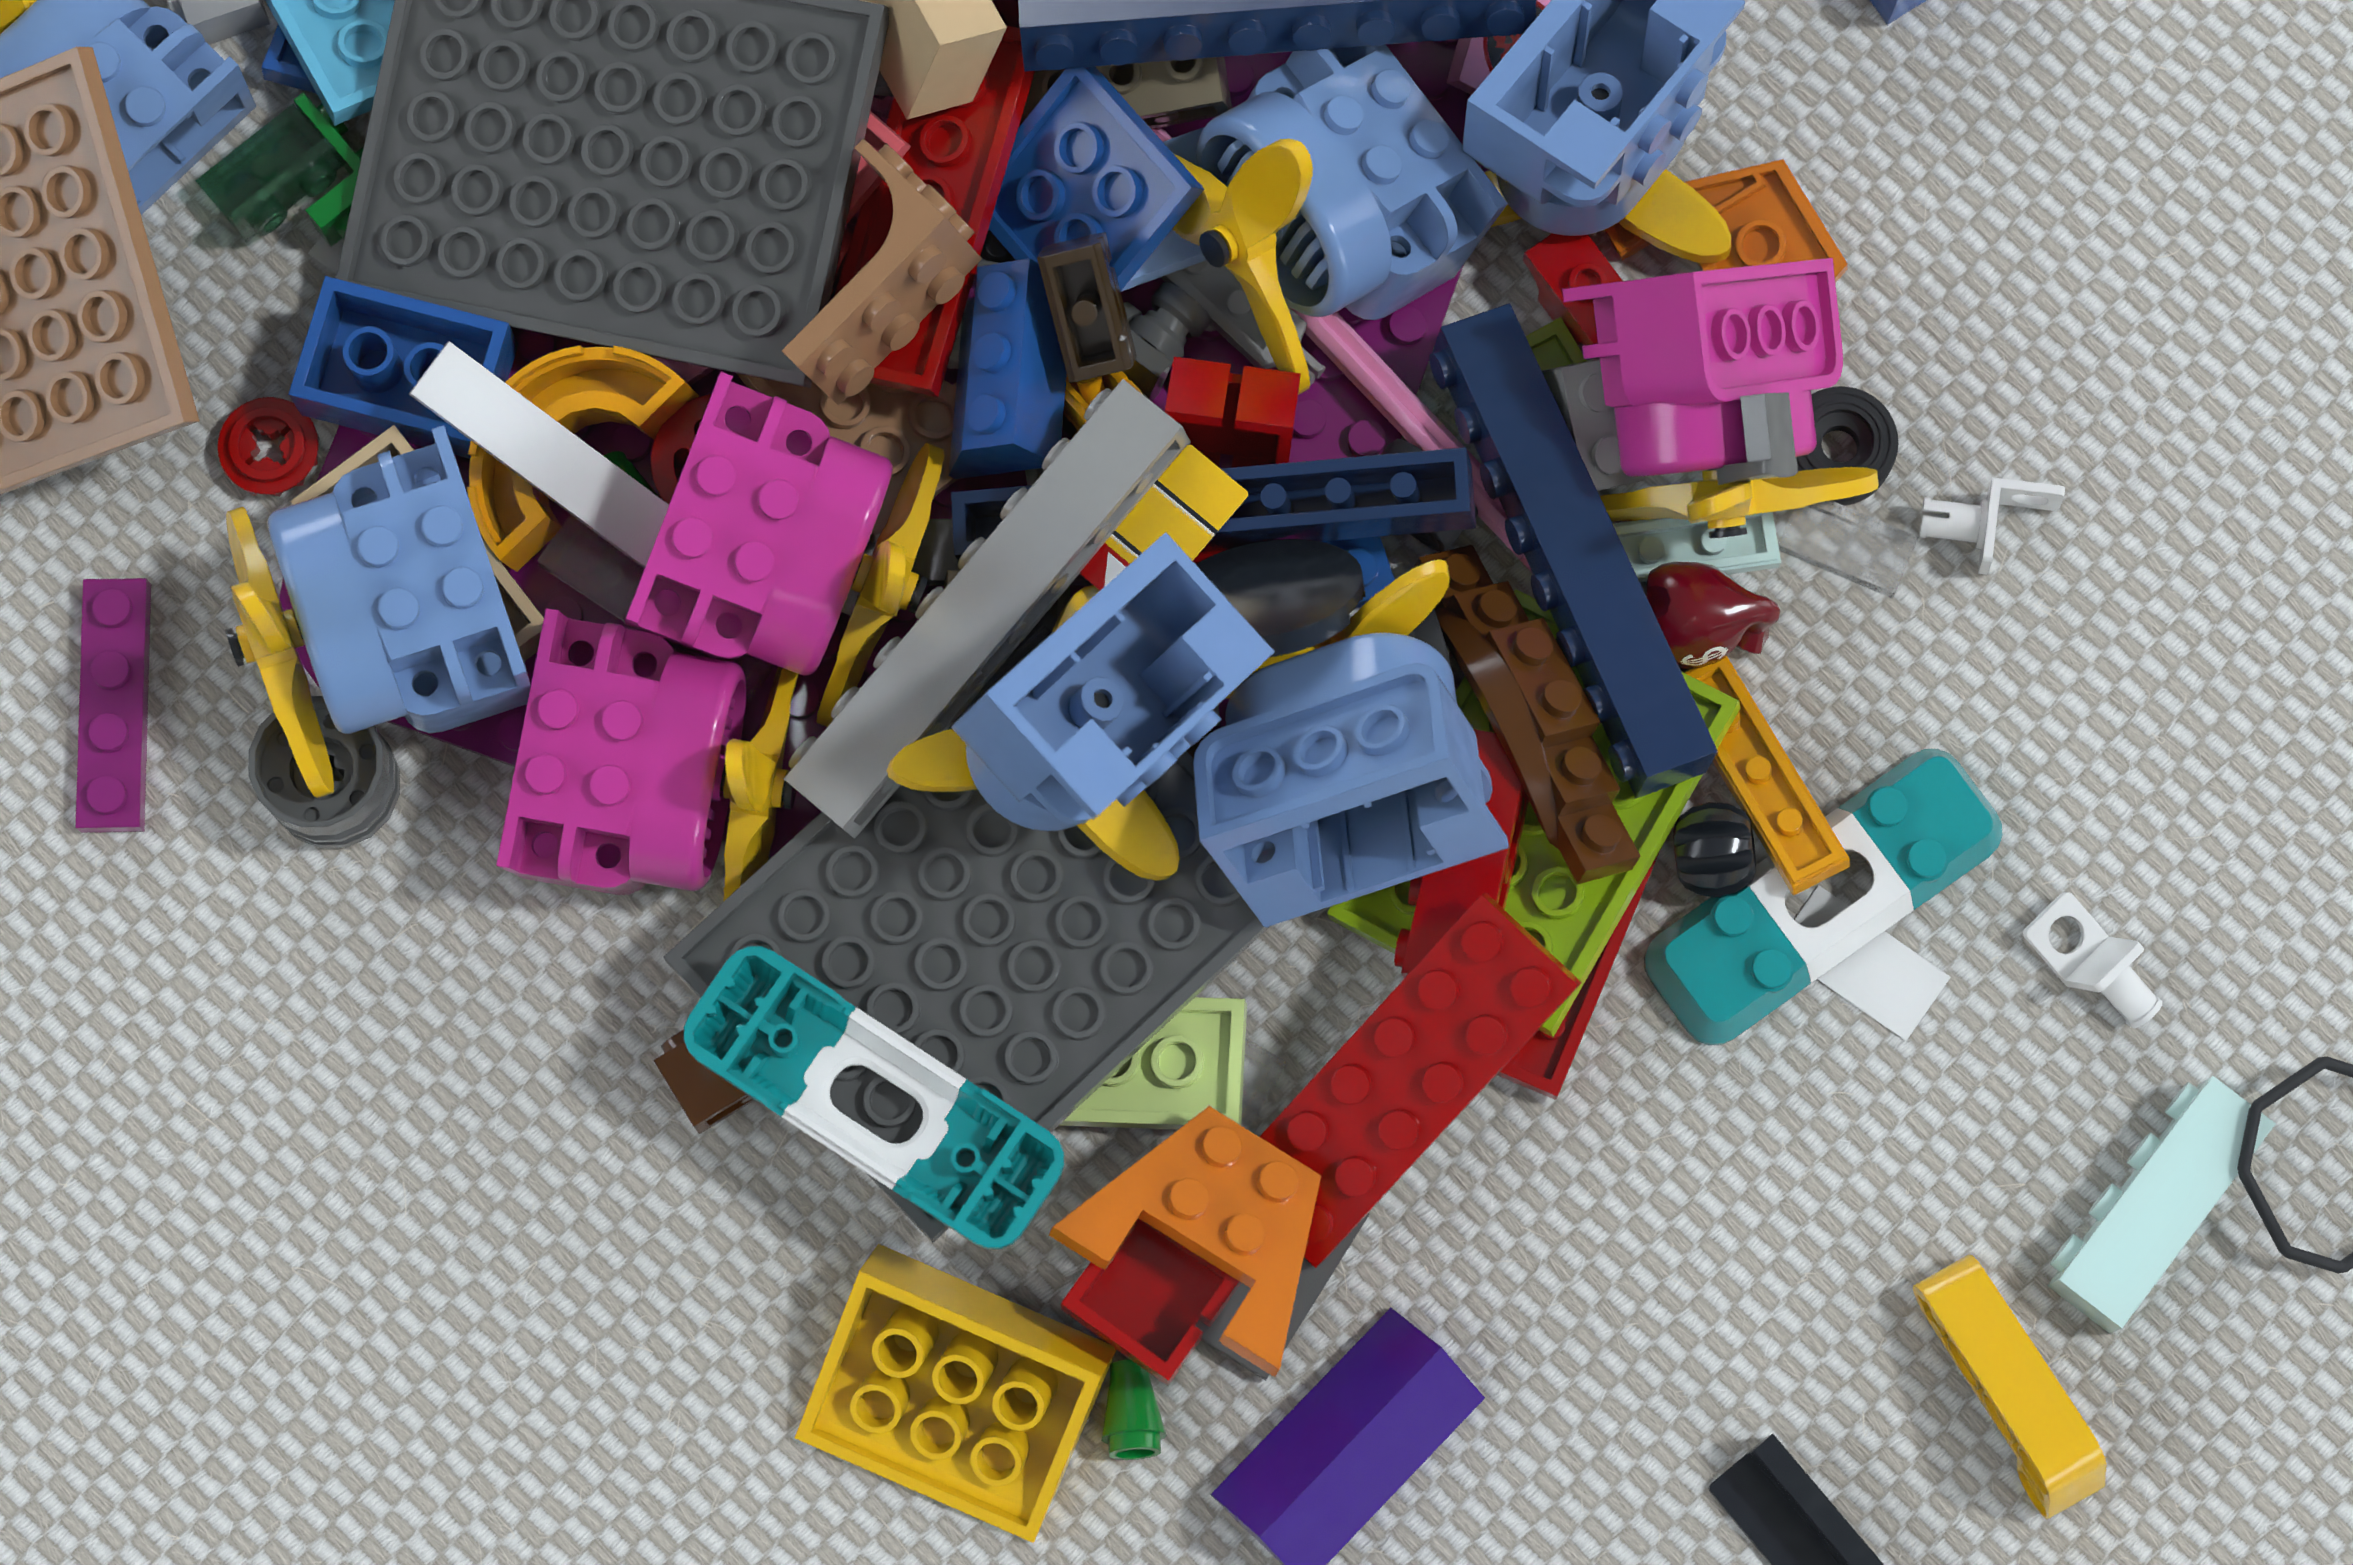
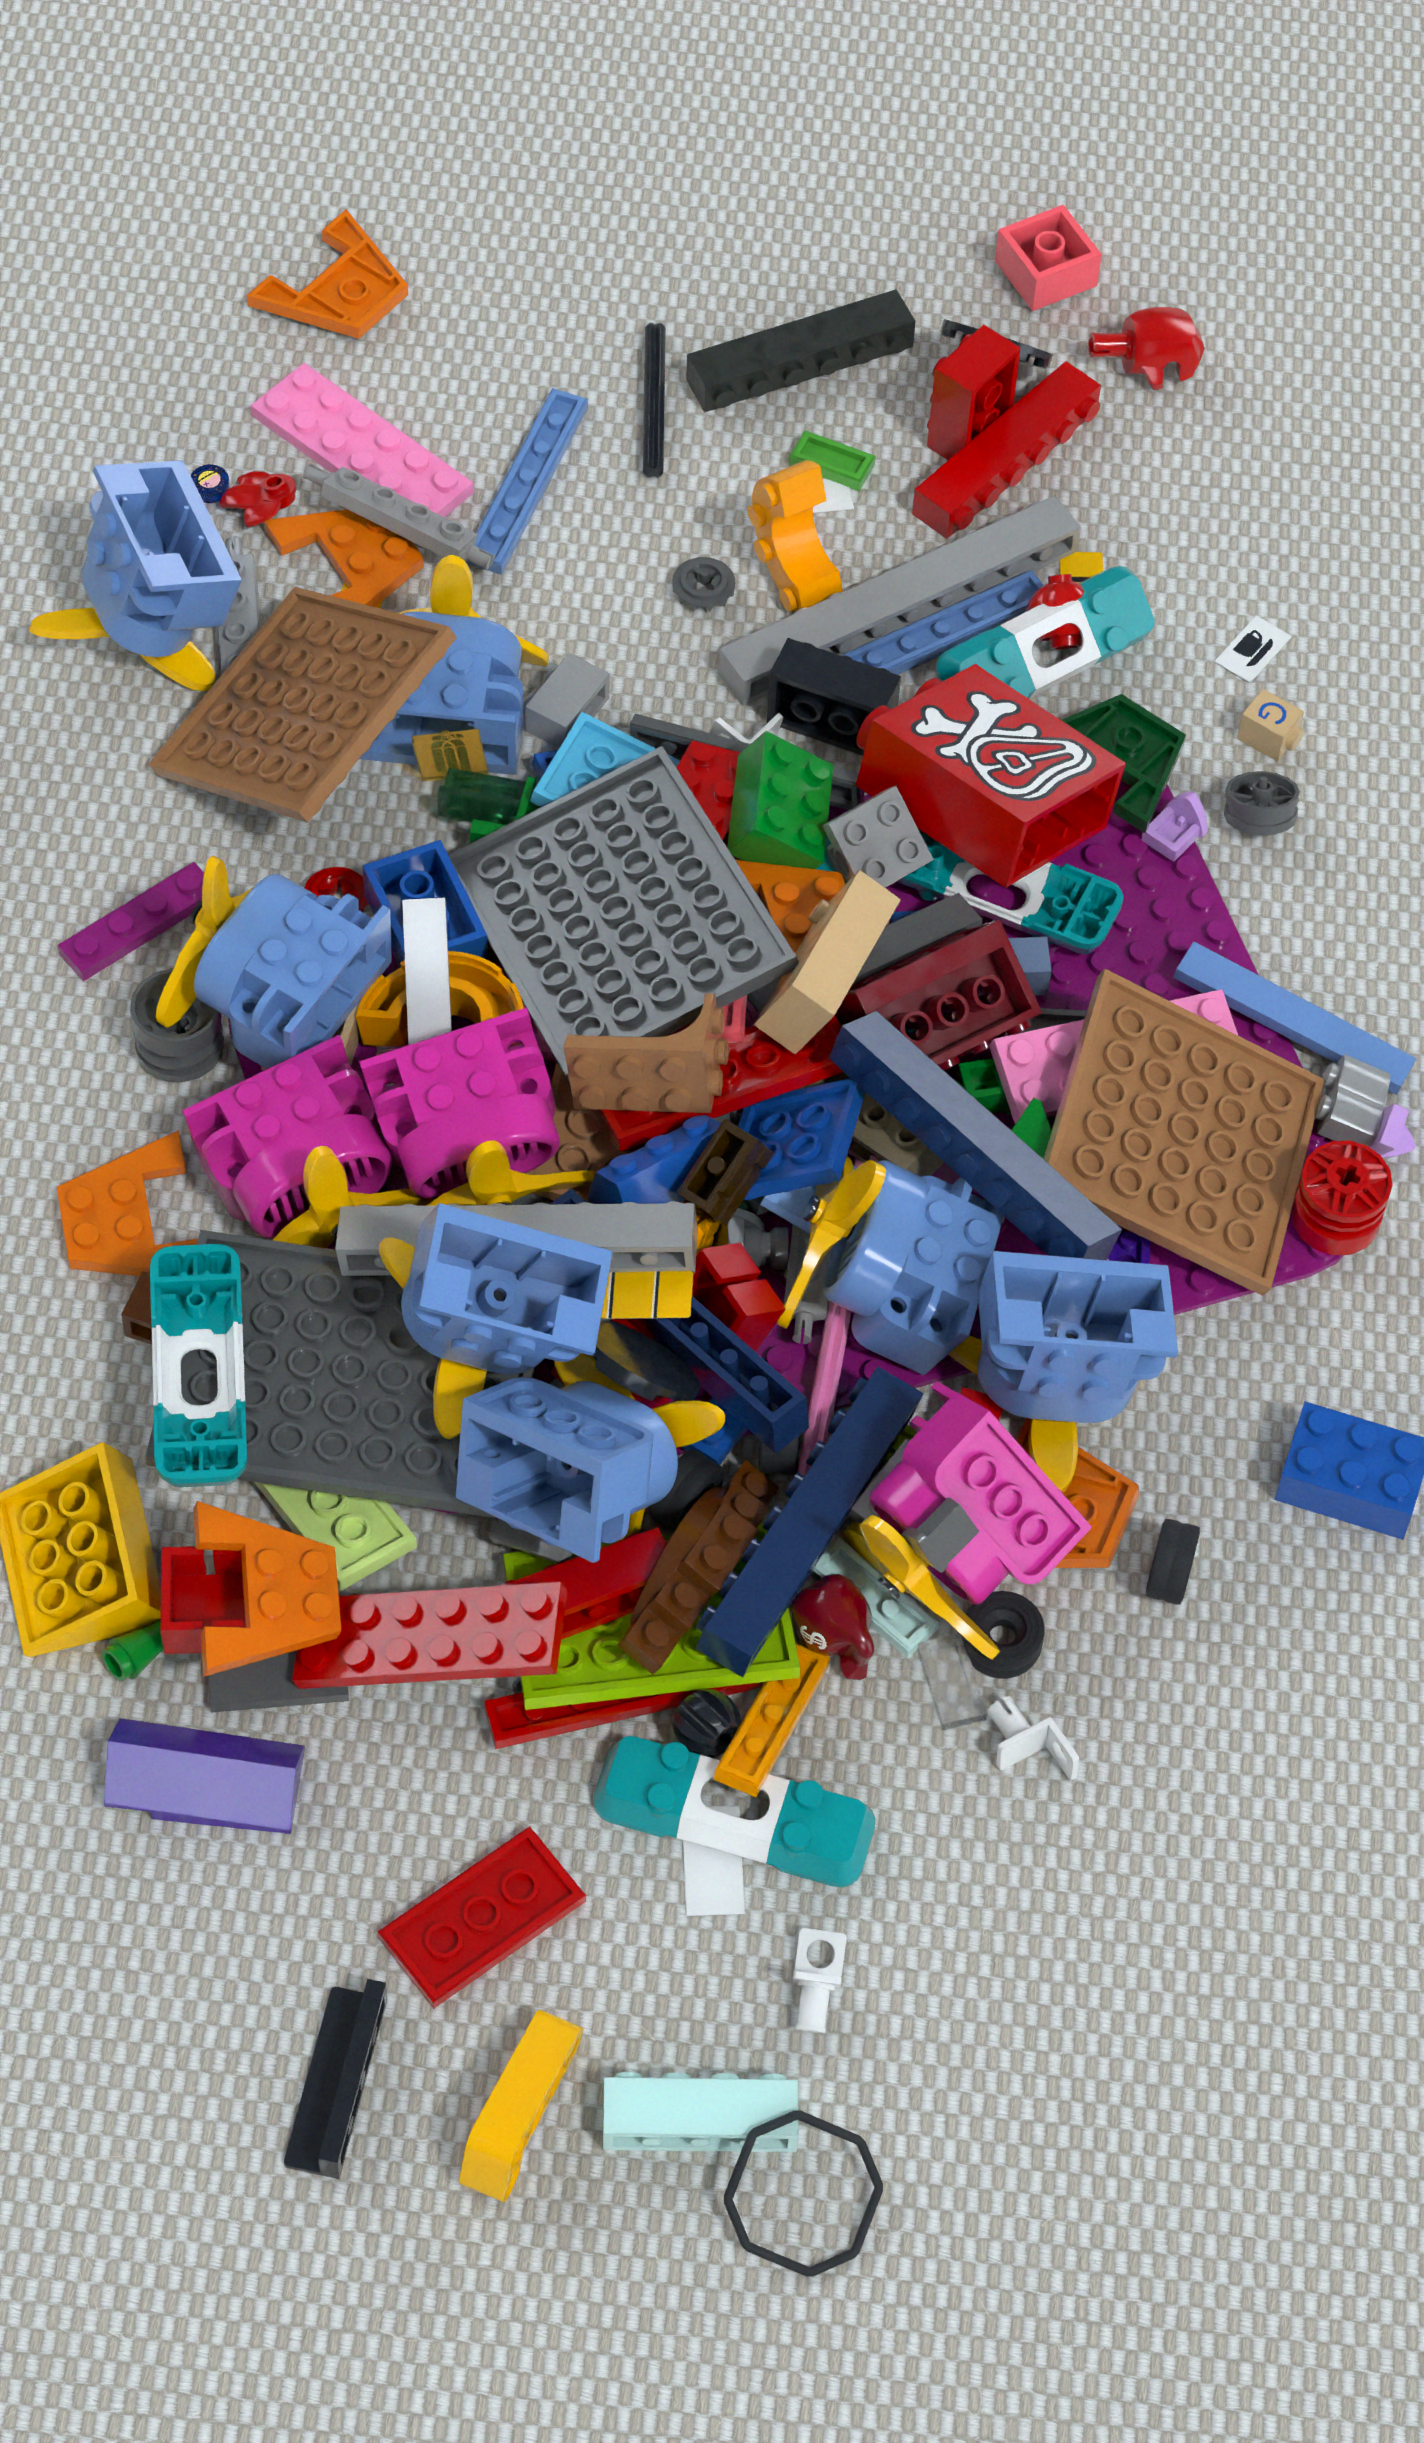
camera: 50 degrees right, 20 degrees down
(193, 156) = (449, 750): none -> clear yellow piece
(520, 1038) = (109, 1214): none -> orange wing
(1747, 1264) = (481, 1917): none -> red tile
(1903, 197) = (1172, 1561): none -> black tyre

